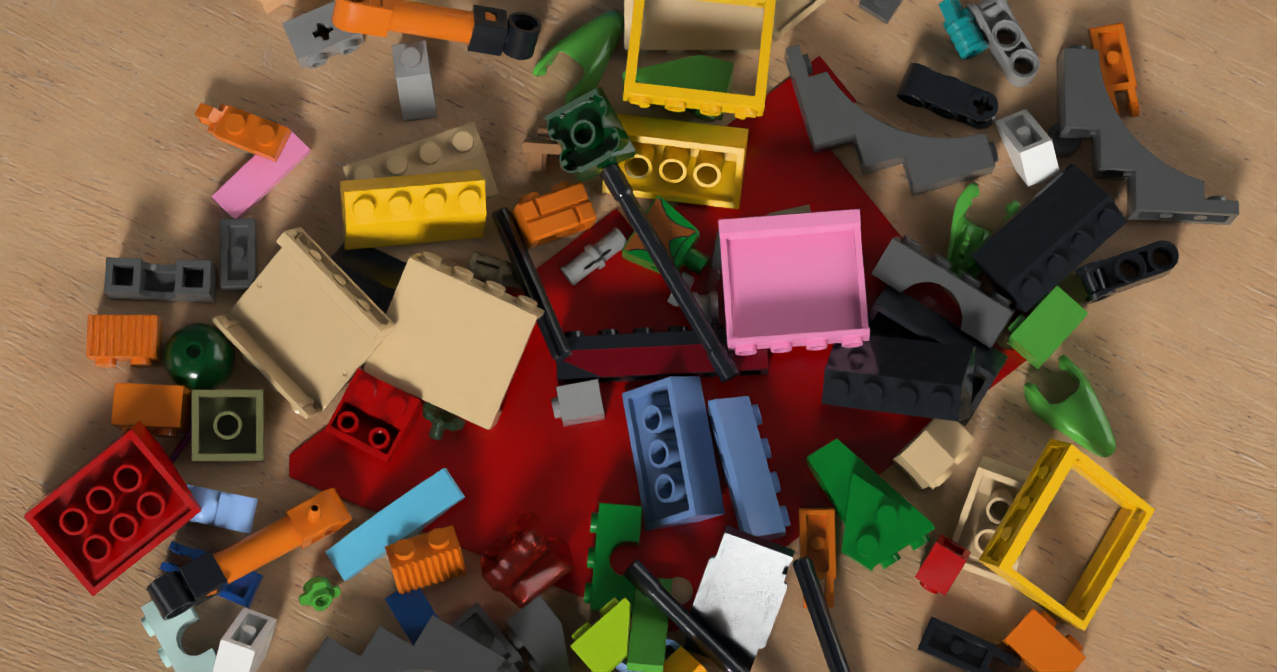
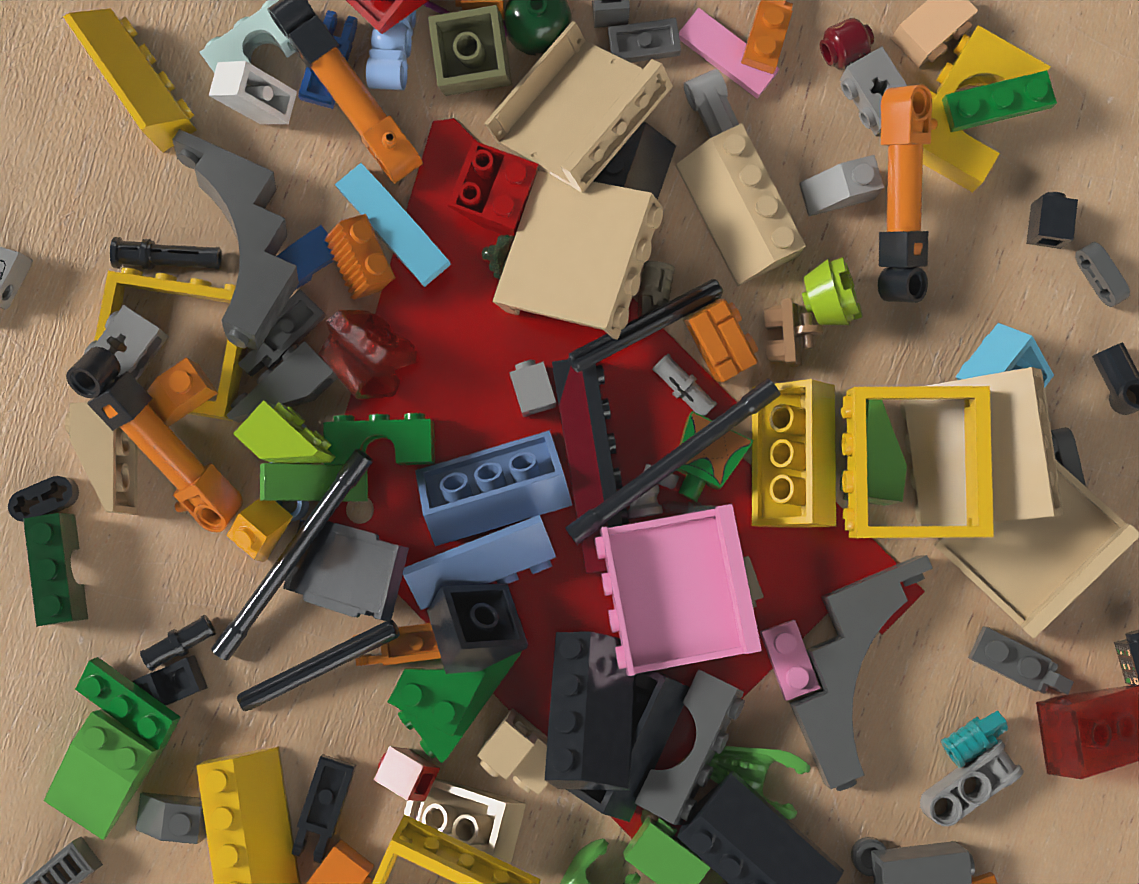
camera: 80 degrees right, 5 degrees up
(270, 57) = (846, 43): none -> dark red head
(305, 197) = (709, 97): none -> light grey piece
(319, 593) = (319, 161): bright green plate -> none
(413, 209) = (708, 195): yellow slope -> none
(522, 103) = (831, 294): none -> lime cone
(588, 46) = (899, 357): bright green animal -> none
(589, 135) = (805, 361): dark green slope -> none
(808, 477) = (475, 626): none -> black slope
(872, 189) = (789, 660): none -> bright pink plate
(947, 96) = (899, 729): black piece -> none
(1028, 147) = (856, 821): white slope -> none

